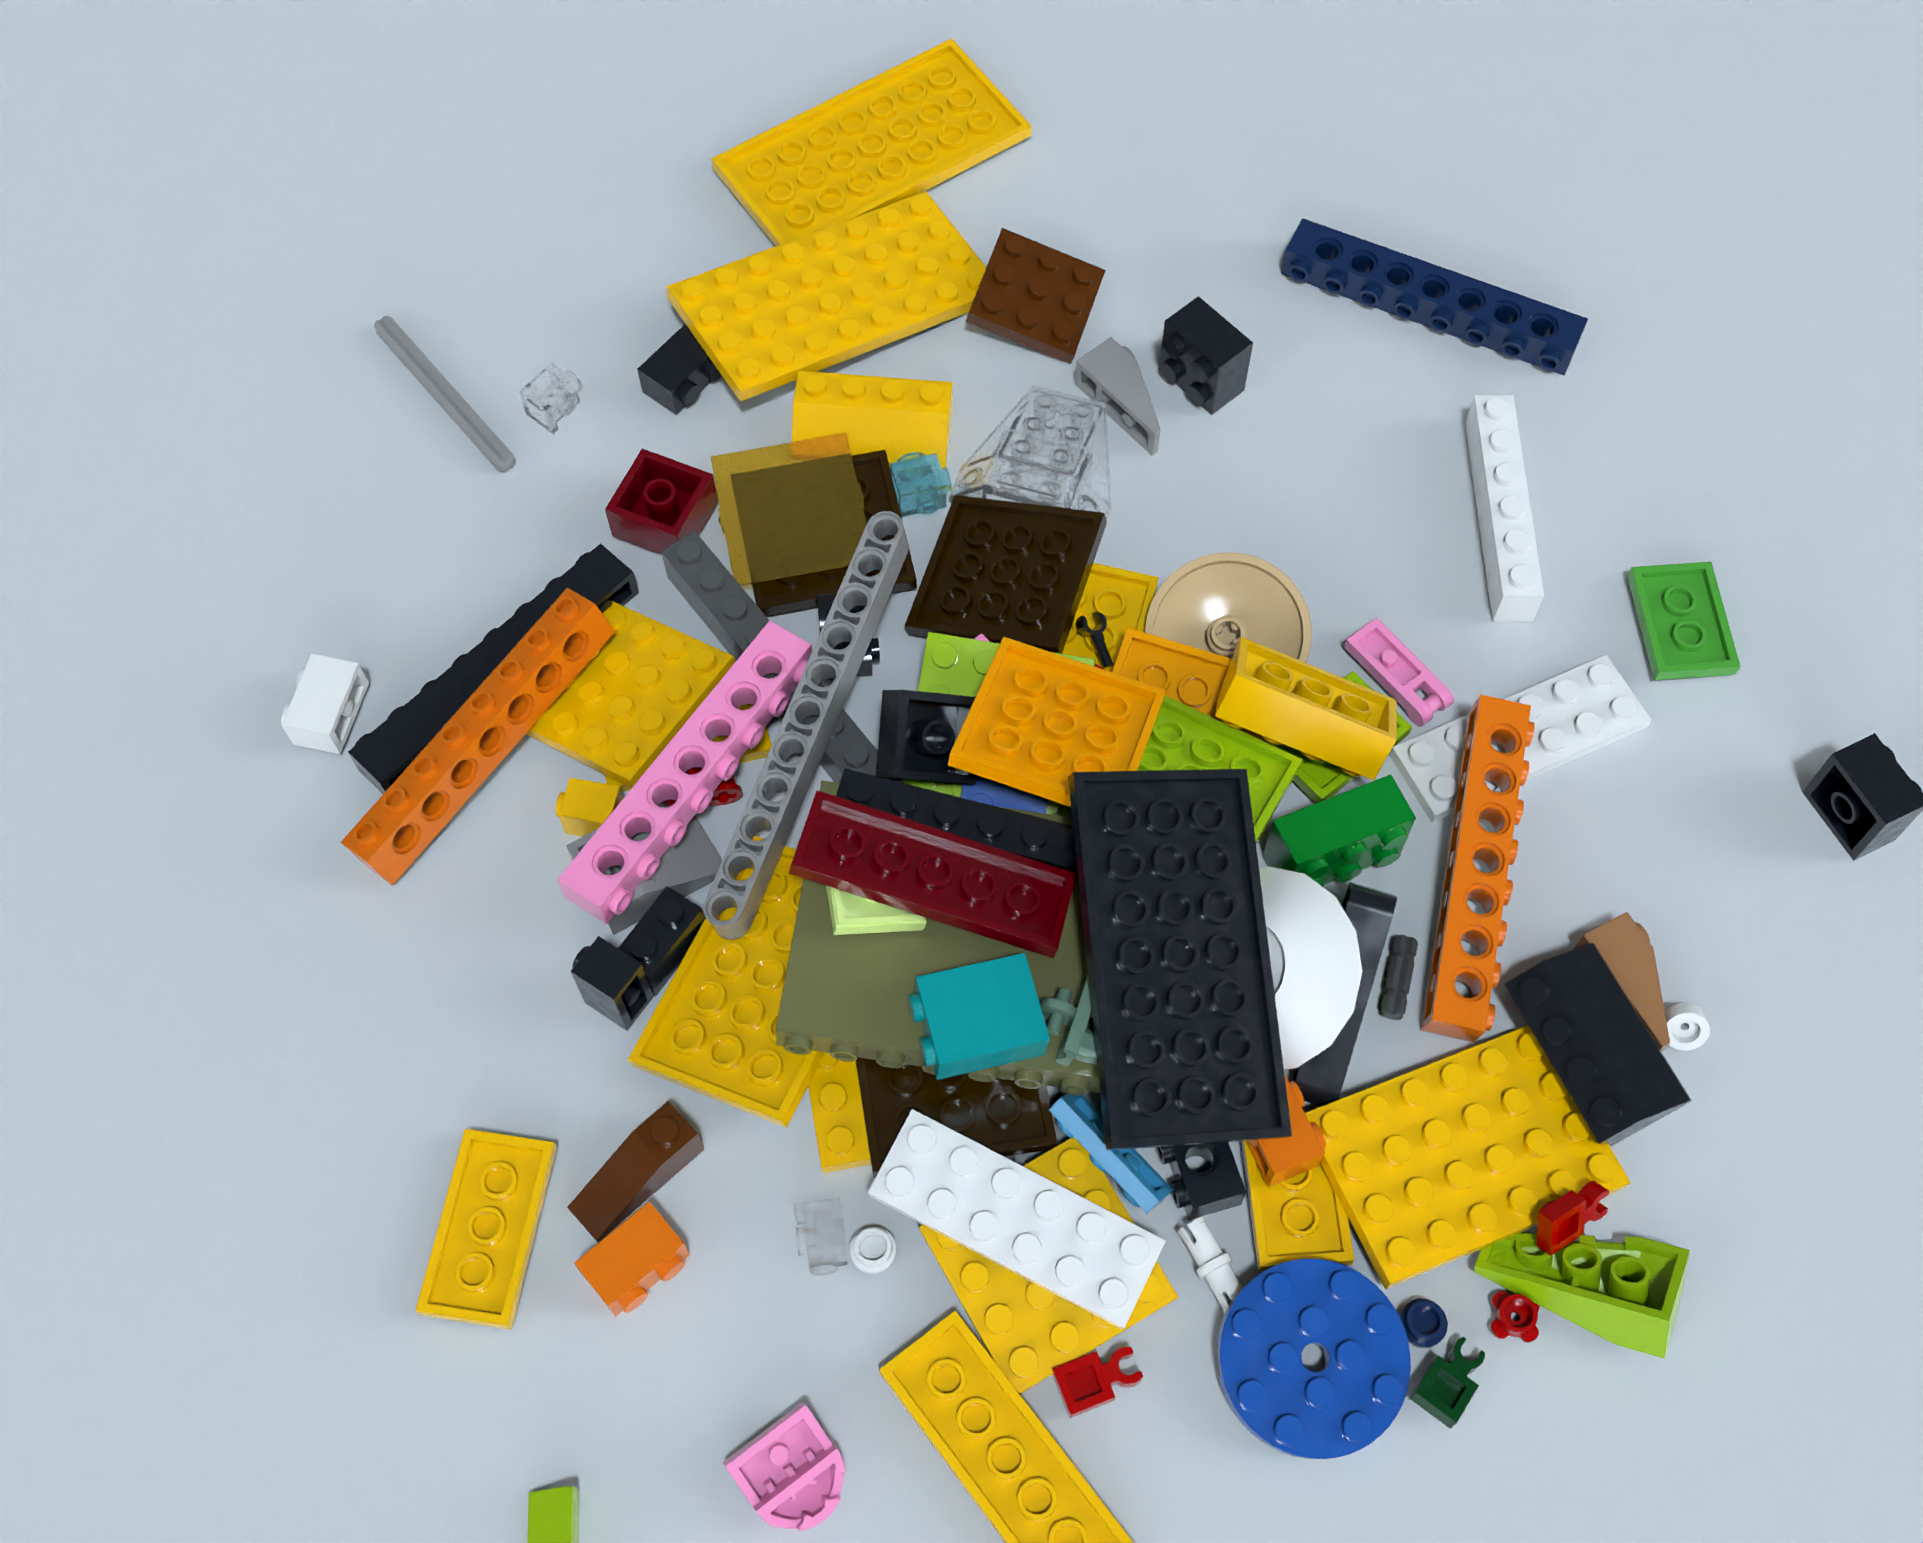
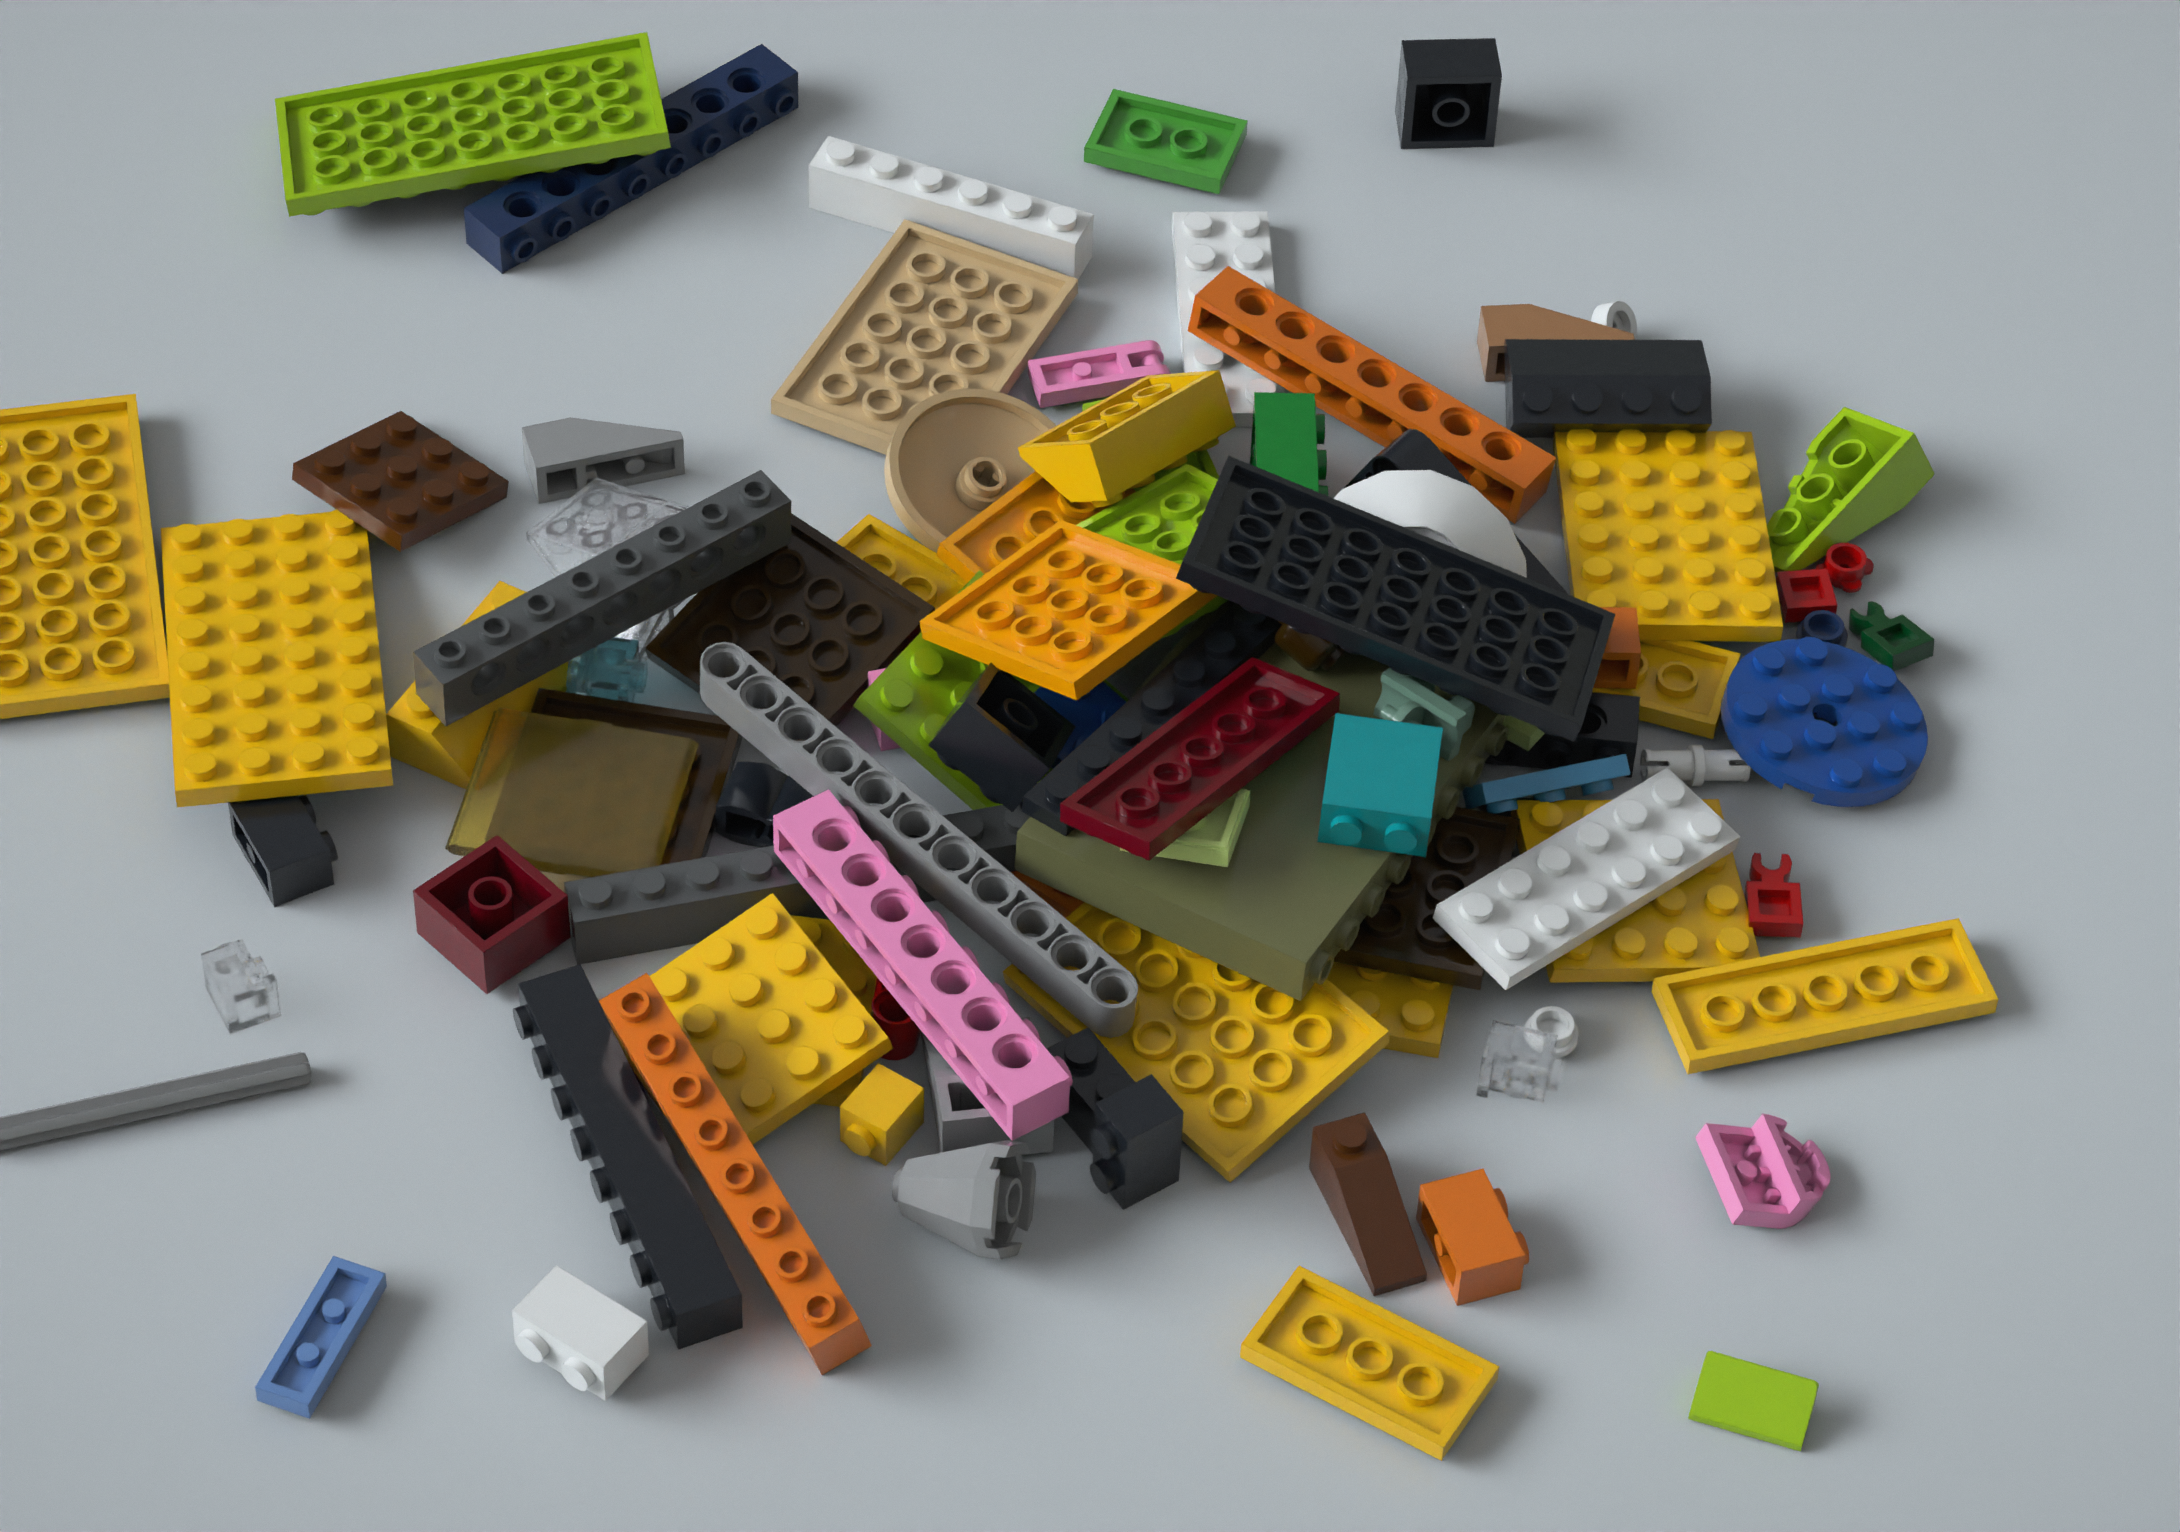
camera: 70 degrees left, 15 degrees down
(284, 563) = (321, 1337): none -> medium blue plate
(526, 898) = (971, 1195): none -> light grey cone
(945, 441) = (602, 597): none -> dark grey brick
(1096, 636) = (913, 578): black hand -> none
(1205, 355) = (604, 358): black brick -> none
(1368, 544) = (922, 324): none -> tan plate
(1390, 190) = (470, 124): none -> lime plate
(1460, 1293) = (1804, 592): none -> red plate
(1565, 1218) = (1771, 483): red plate -> none

